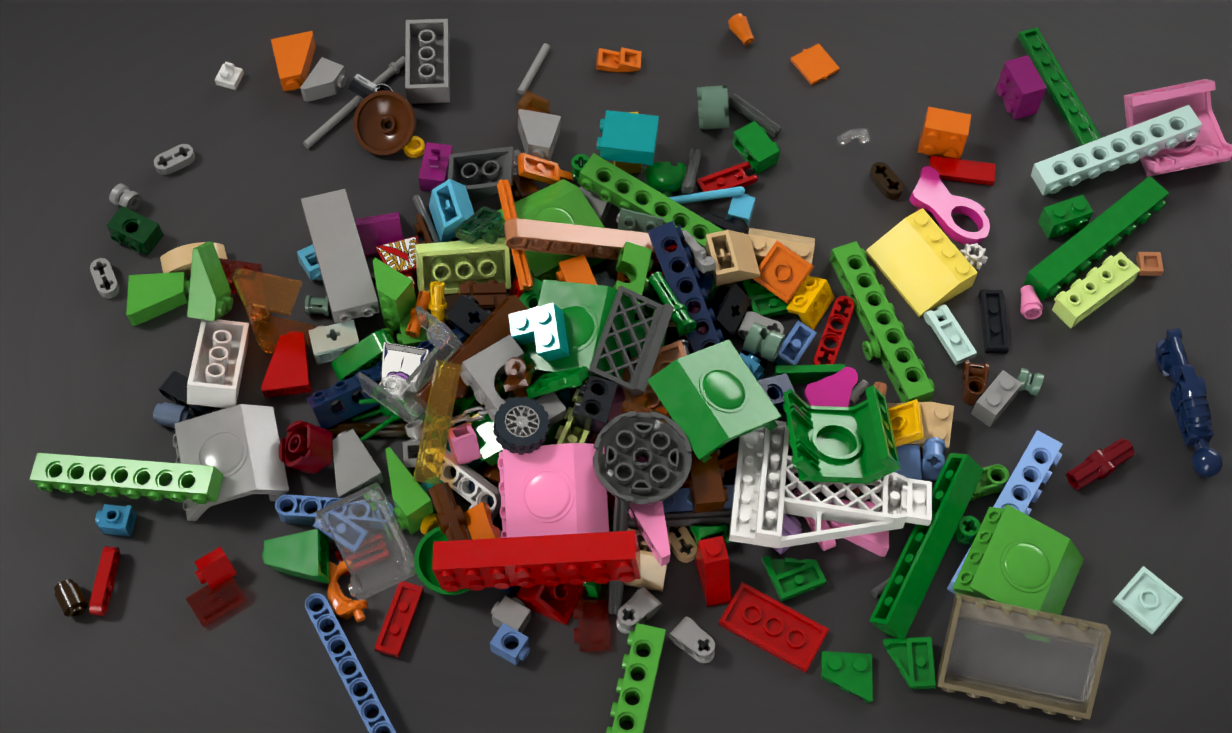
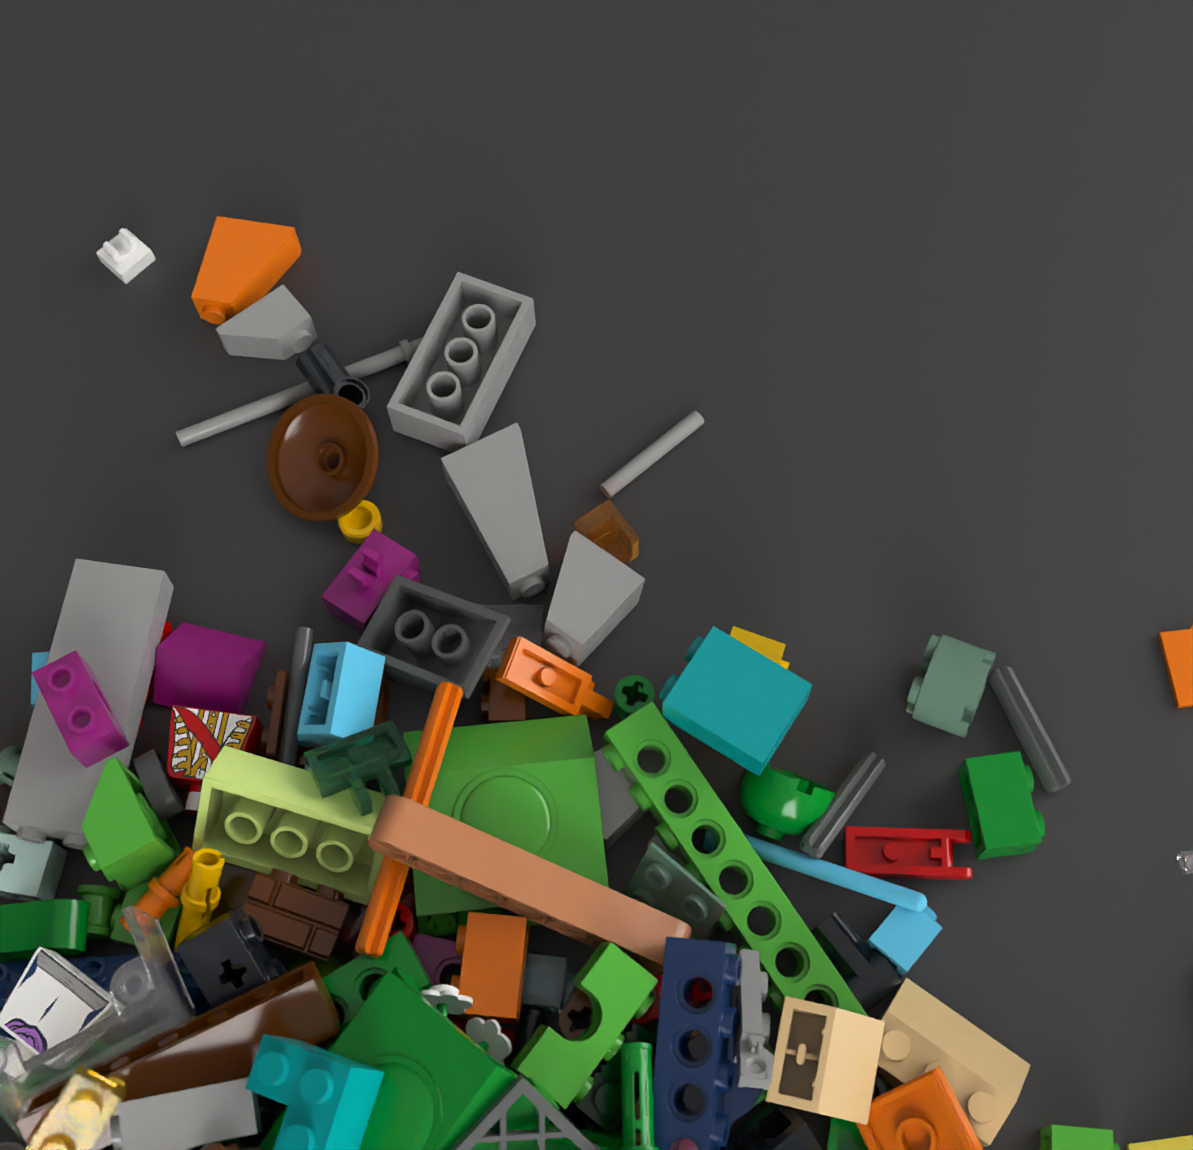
camera: 30 degrees right, 5 degrees up
(345, 250) = (80, 709): none -> magenta brick
(477, 113) = (500, 503): none -> light grey slope
(623, 61) = (818, 503): orange slope -> none
(740, 27) = (1086, 530): orange cone -> none

